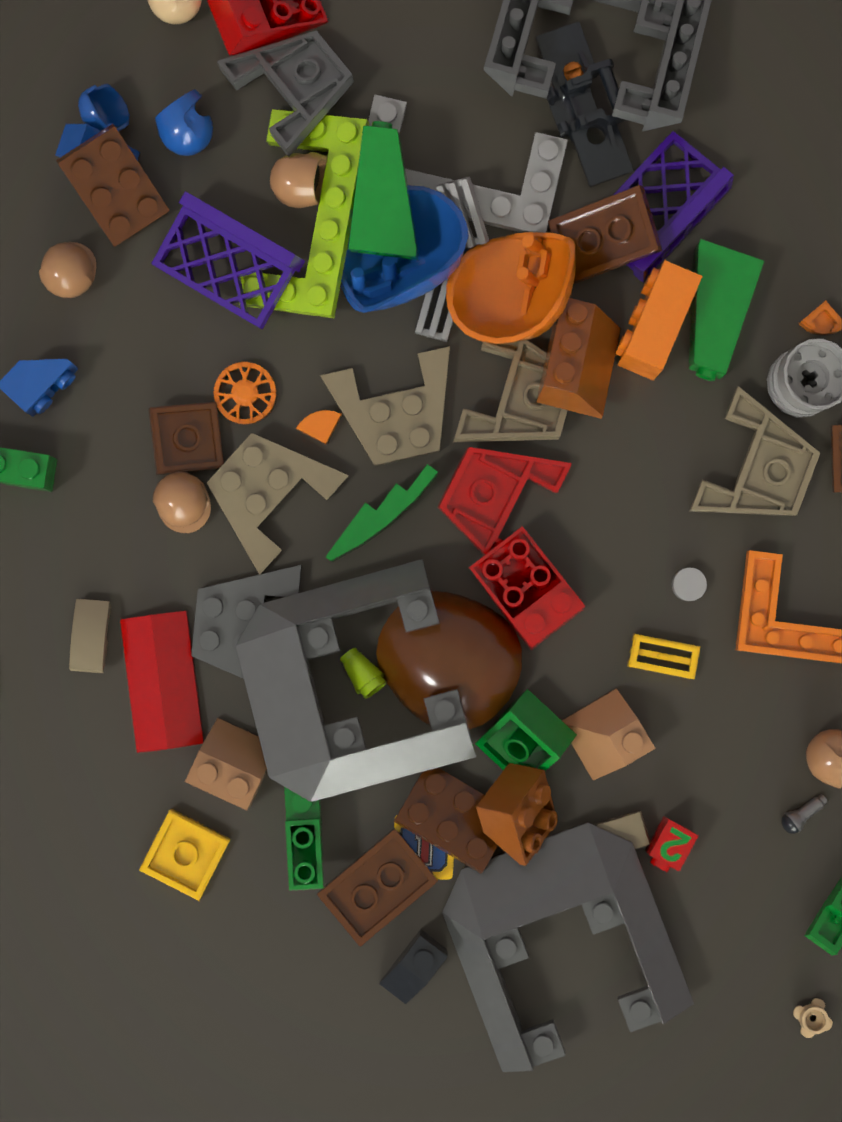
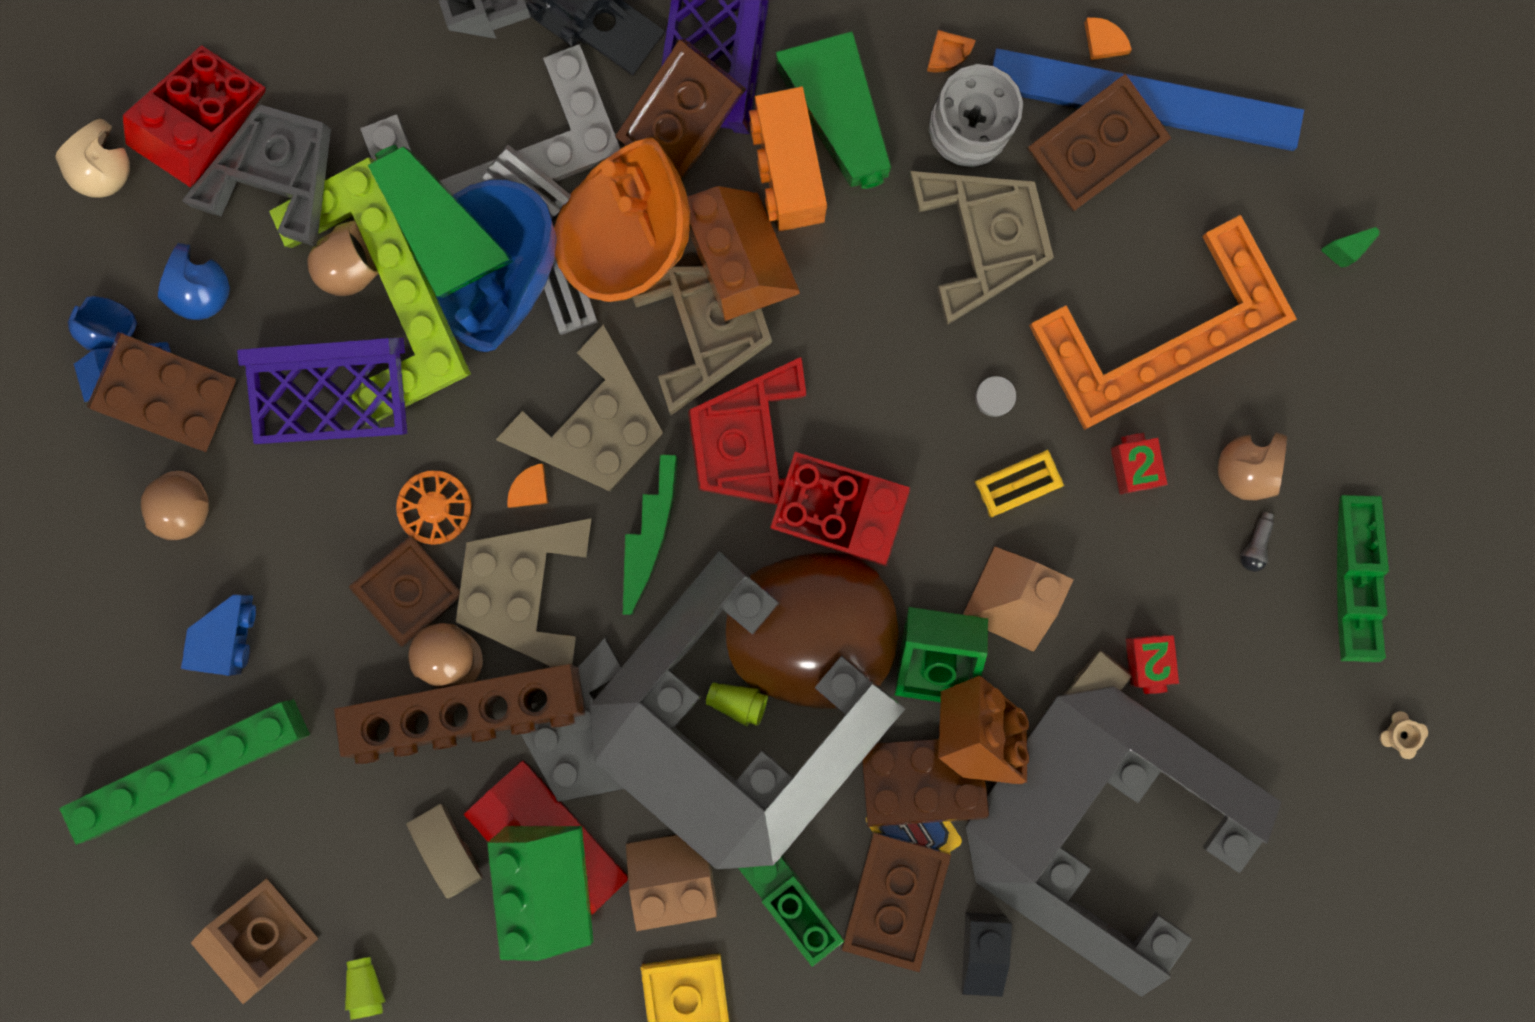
camera: 30 degrees left, 0 degrees up
(93, 506) = (359, 722): none -> reddish brown brick
(137, 708) = (540, 891): none -> green slope
(756, 700) = (1138, 464): none -> red brick

